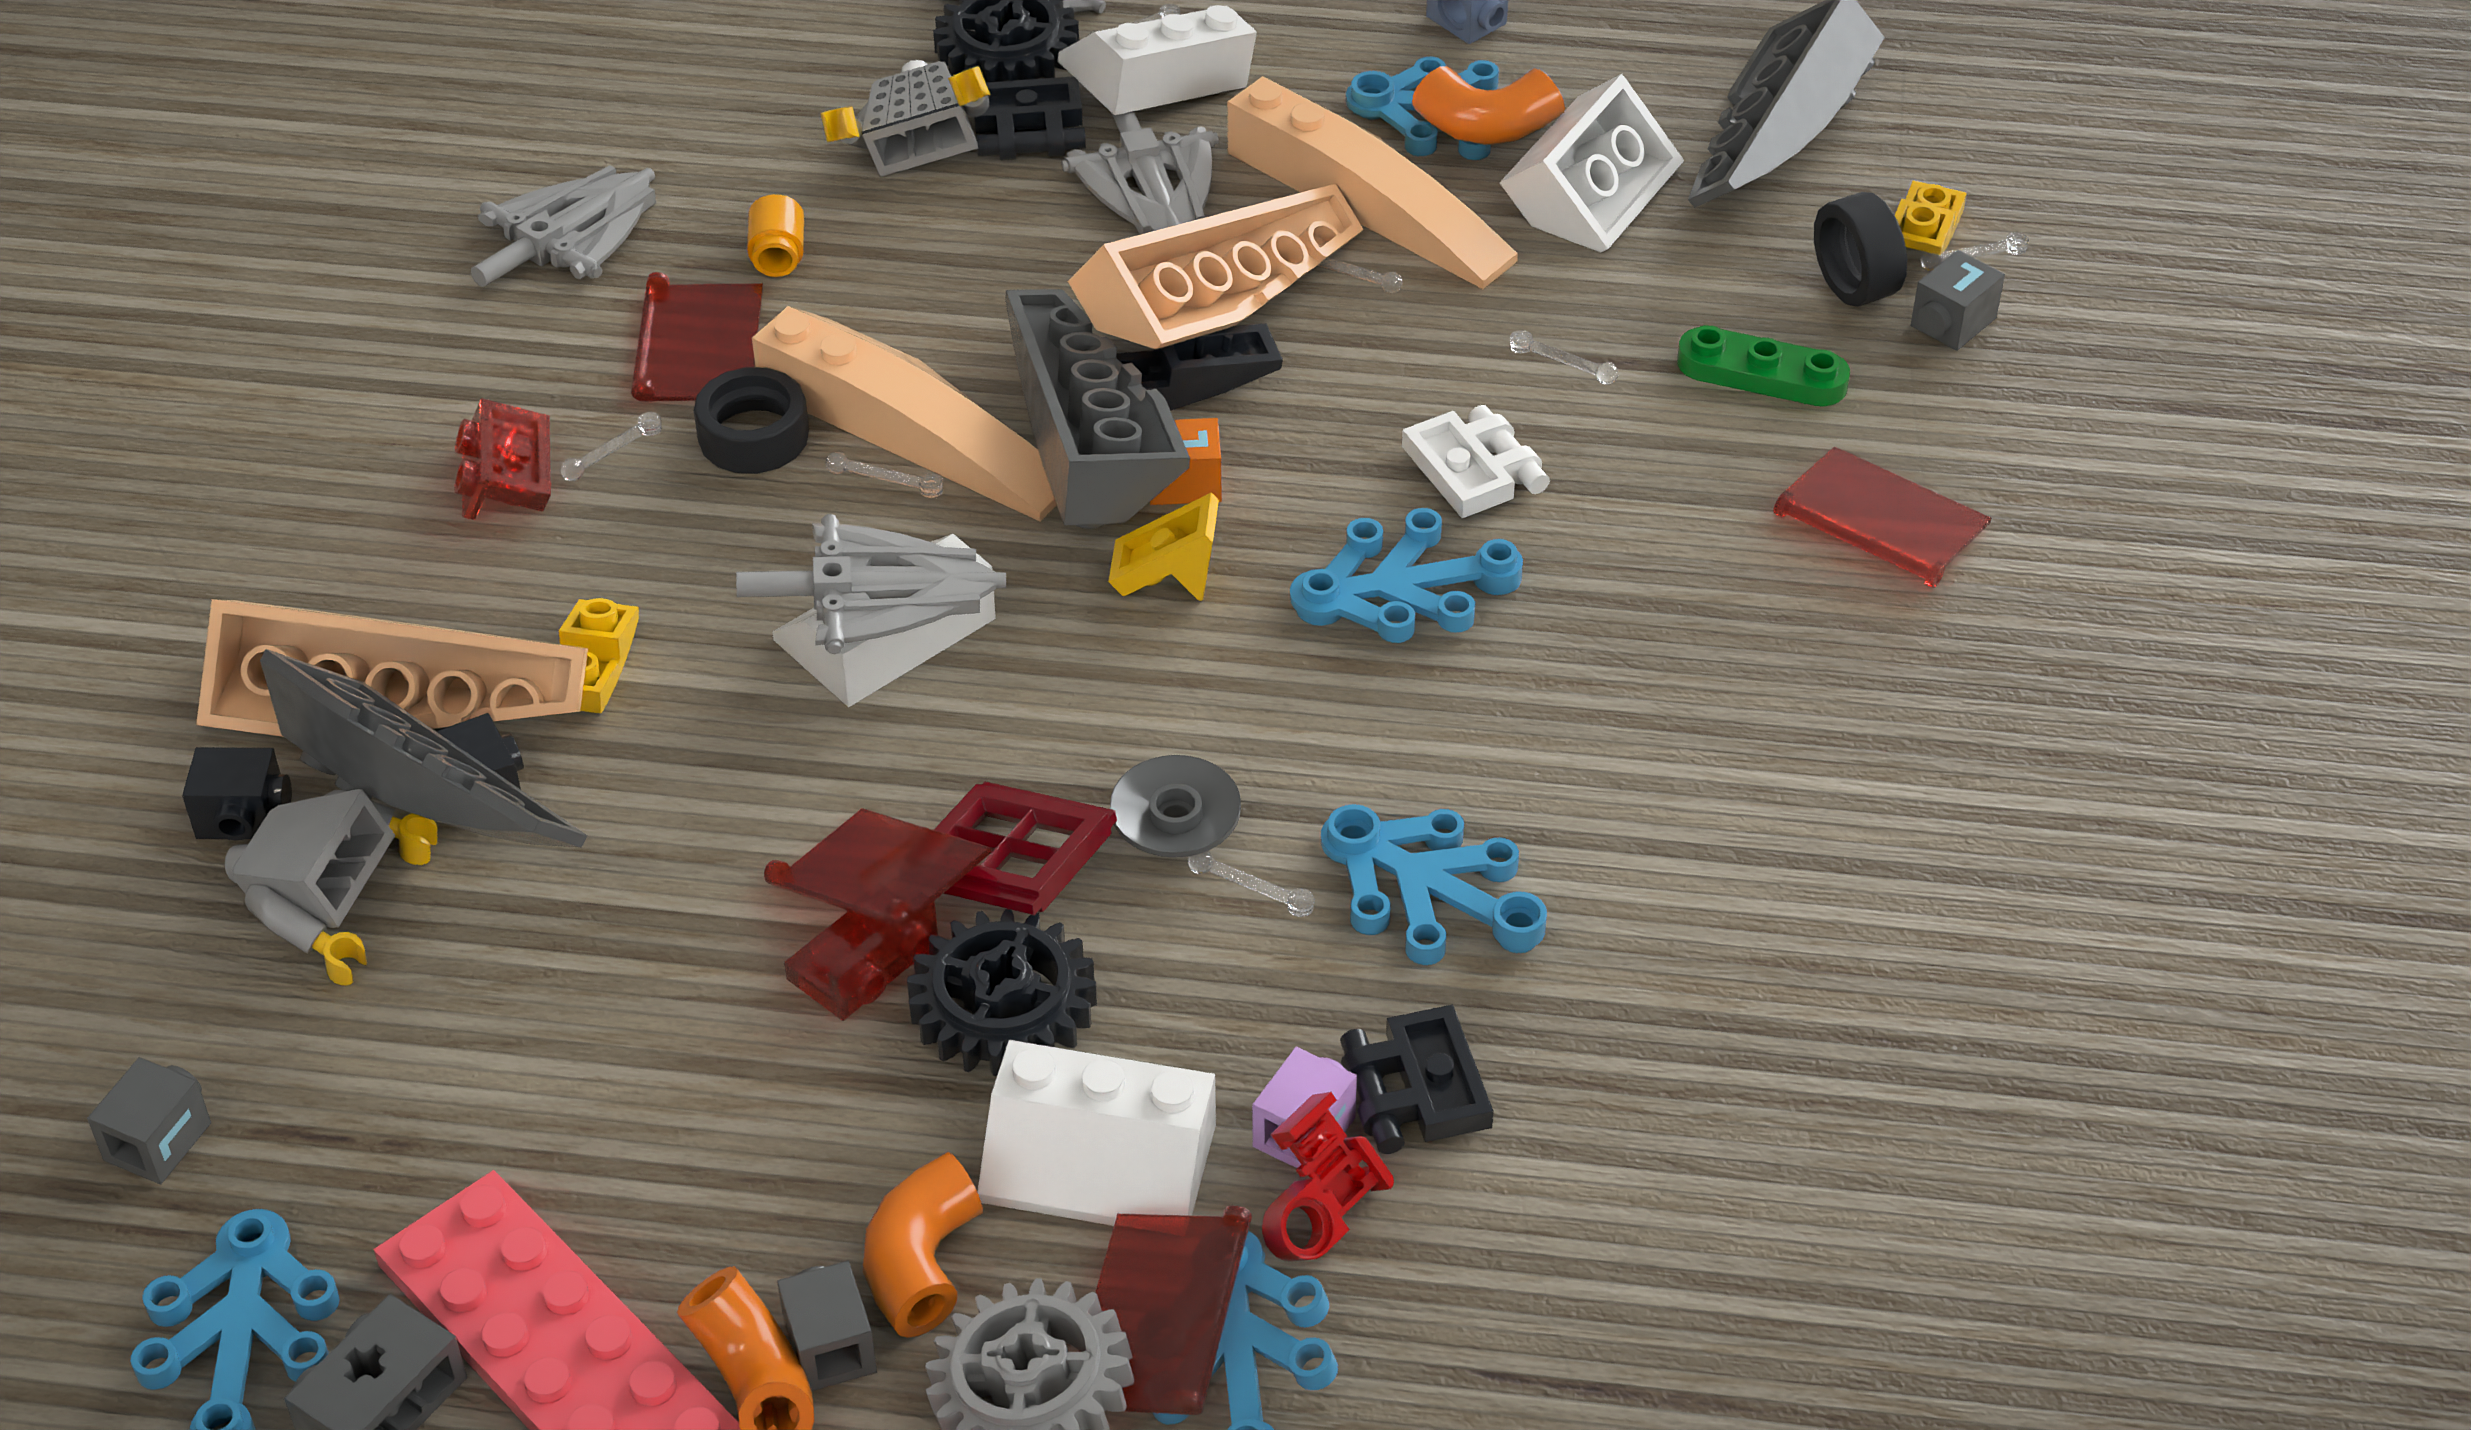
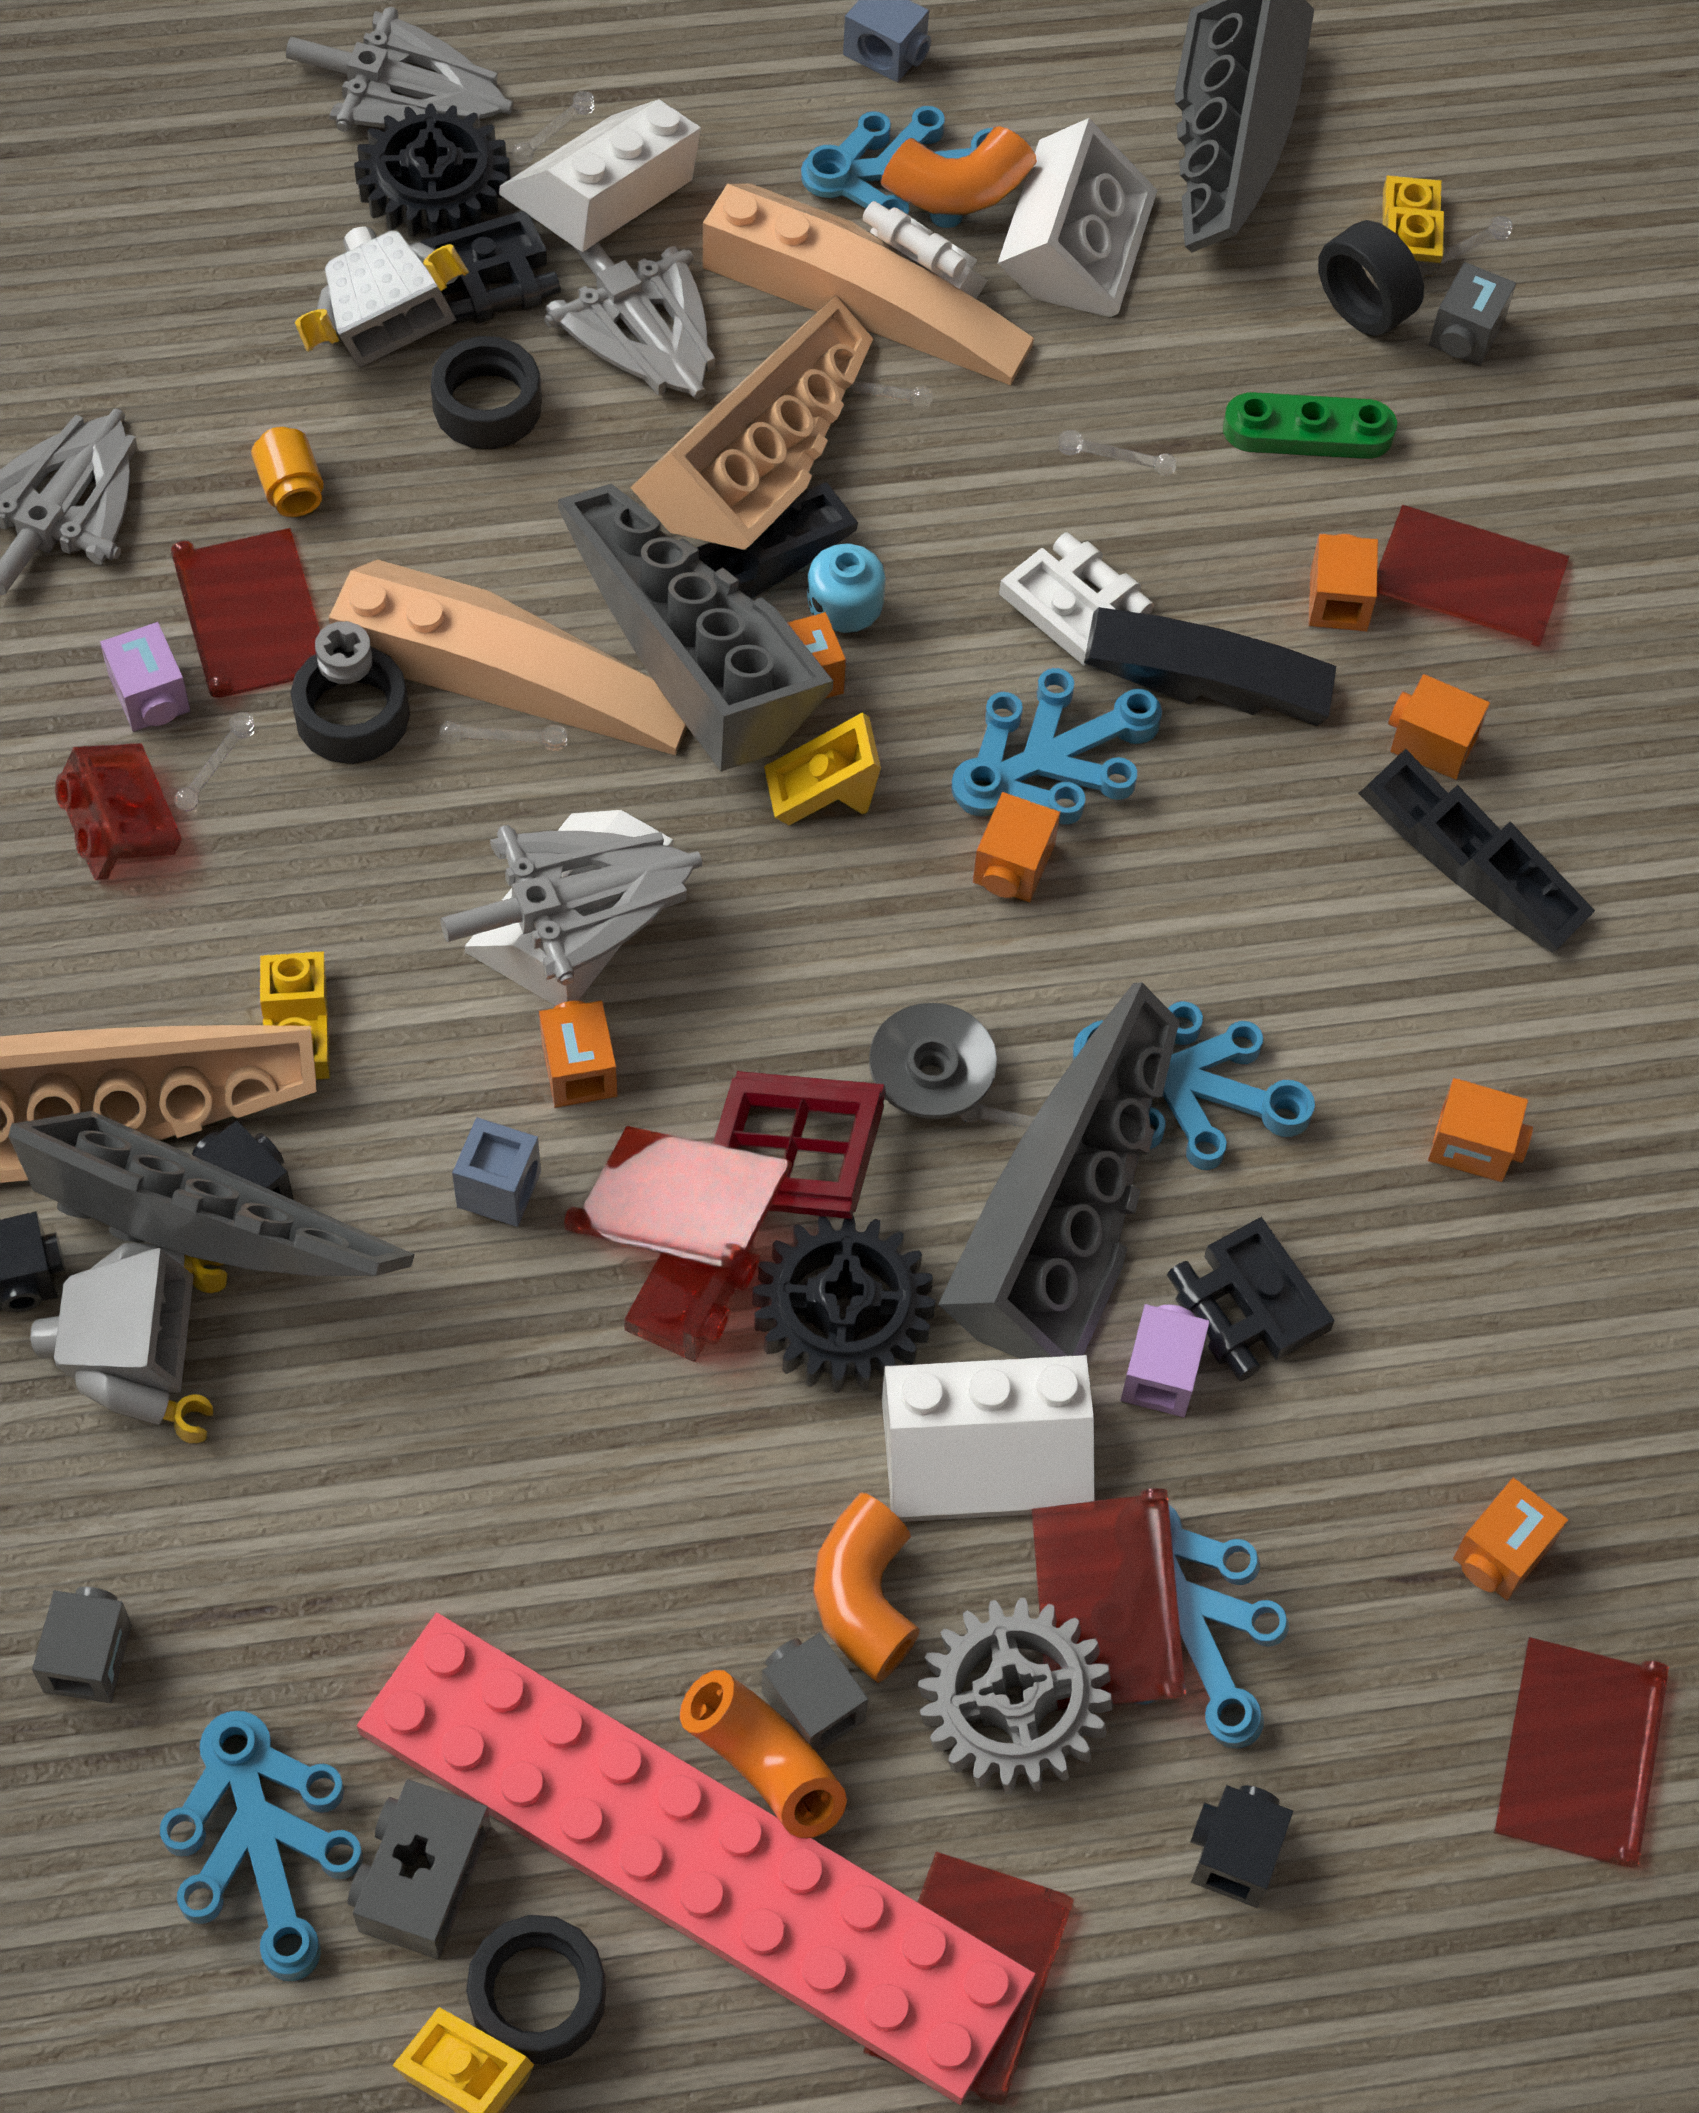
camera: 20 degrees left, 15 degrees up
(575, 365) = (145, 677): none -> lavender brick
(712, 807) = (497, 1171): none -> sand blue brick
(752, 381) = (336, 666): none -> light grey bush
(835, 733) = (578, 1053): none -> orange brick
(982, 233) = (486, 358): none -> black tyre
(1250, 408) = (847, 586): none -> medium azure head
(1255, 955) = (1056, 1216): none -> dark grey wedge
(1330, 647) = (1015, 847): none -> orange brick
(1335, 1181) = (1216, 1422): red piece -> none
(1432, 156) = (926, 249): none -> white plate
(1593, 535) = (1211, 662): none -> black slope
(1606, 1353) = (1509, 1540): none -> orange brick
(1711, 978) = (1480, 1130): none -> orange brick
(1744, 492) = (1343, 582): none -> orange brick
(1797, 627) = (1438, 725): none -> orange brick
(1803, 747) = (1478, 856): none -> black slope

